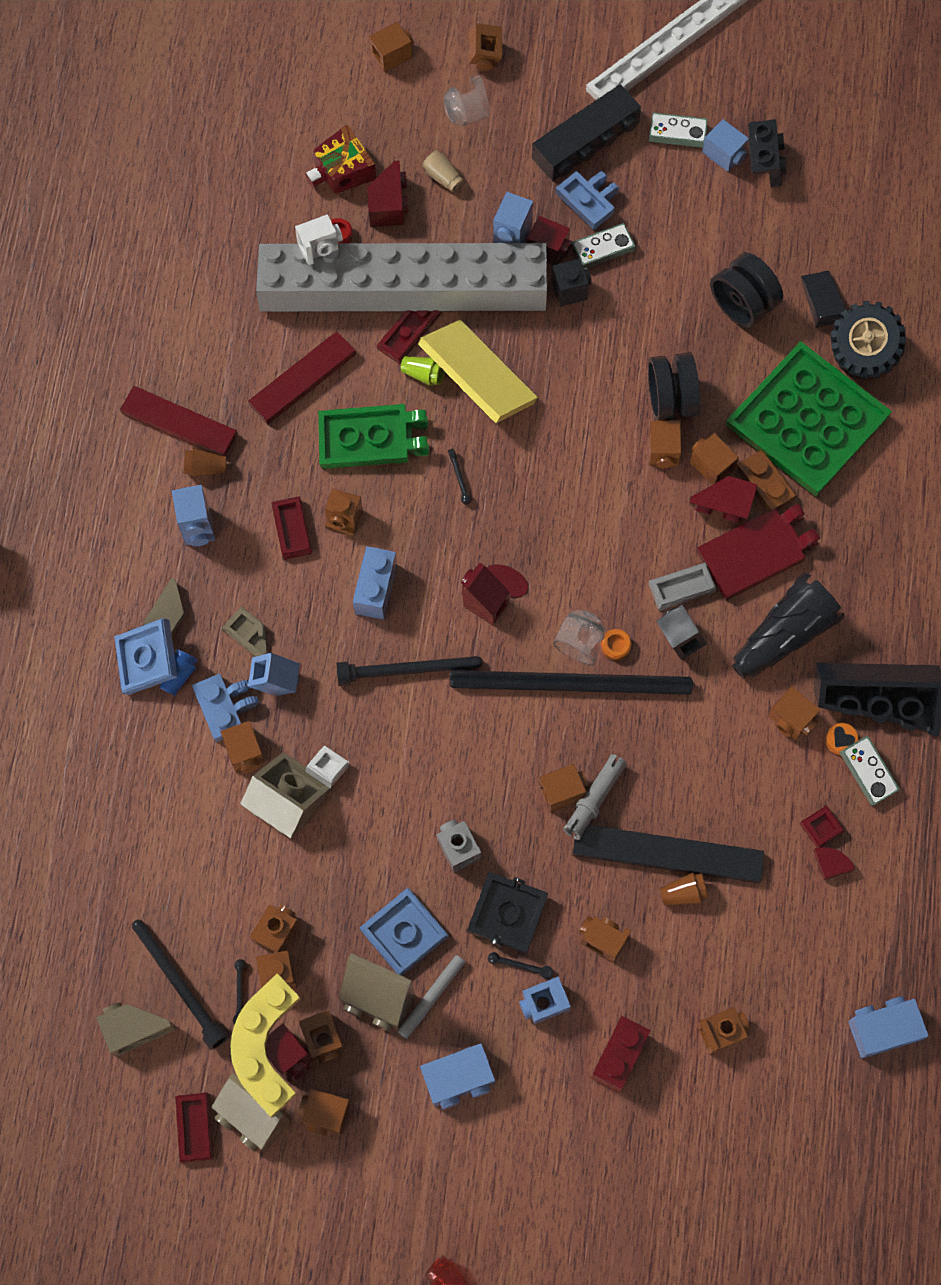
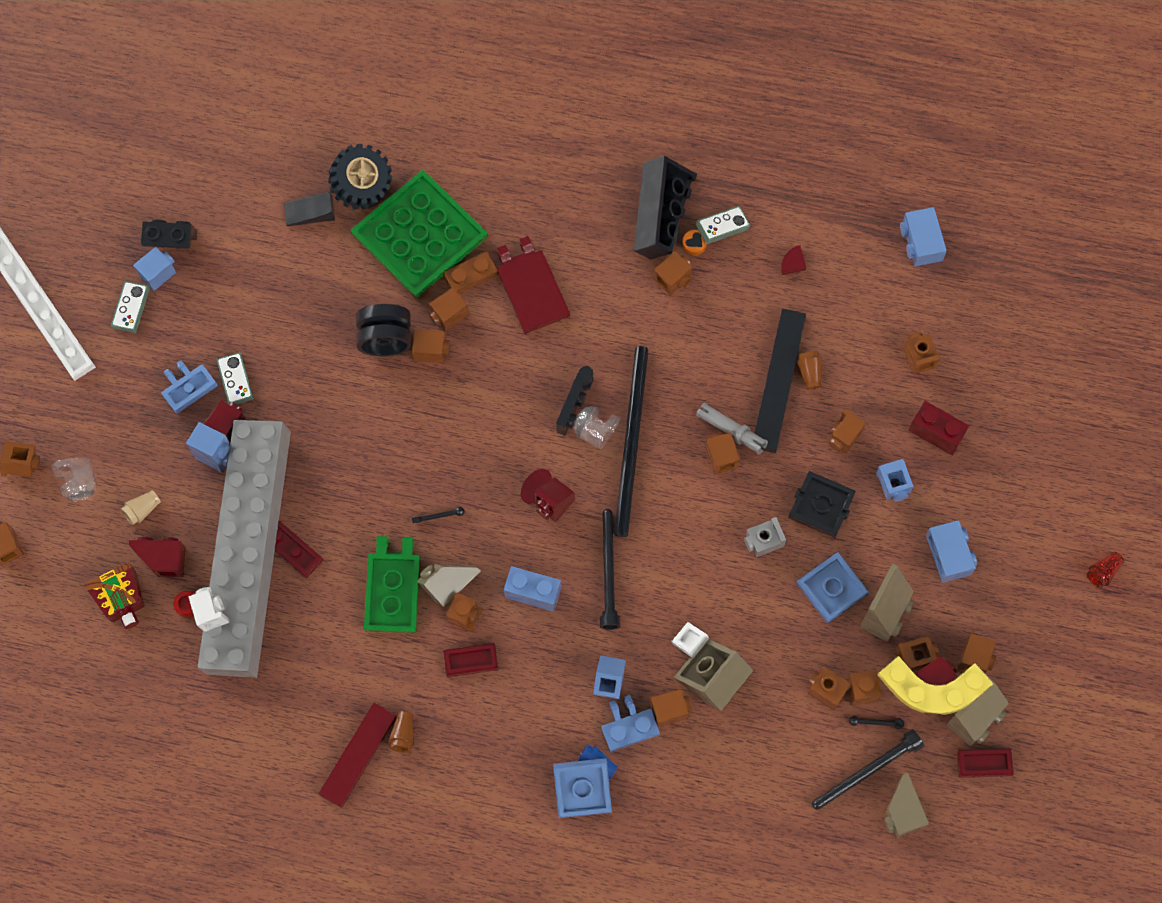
camera: 85 degrees left, 0 degrees up
(168, 607) = (538, 770): dark tan tile -> none
(193, 515) = (458, 738): medium blue brick -> none
(247, 632) = (565, 701): dark tan tile -> none
(302, 377) = (328, 643): dark red tile -> none
(378, 488) = (446, 580): none -> slope
(423, 369) = (335, 536): lime cone -> none
(431, 997) = (877, 562): light grey bar -> none
(477, 371) = (344, 490): light yellow tile -> none
(545, 972) = (868, 481): black hinge -> none
(570, 282) = (269, 405): black brick -> none
(586, 132) = (122, 380): black brick -> none
(615, 610) = (574, 399): none -> black hinge
(616, 644) = (603, 400): orange tile -> none
(681, 632) = (598, 348): brick -> none
(682, 586) = (555, 347): light grey tile -> none
(727, 496) = (484, 300): dark red slope -> none
(746, 290) = (301, 263): black wheel -> none
(790, 624) = (598, 261): black cone -> none
(822, 827) = (764, 265): dark red tile -> none

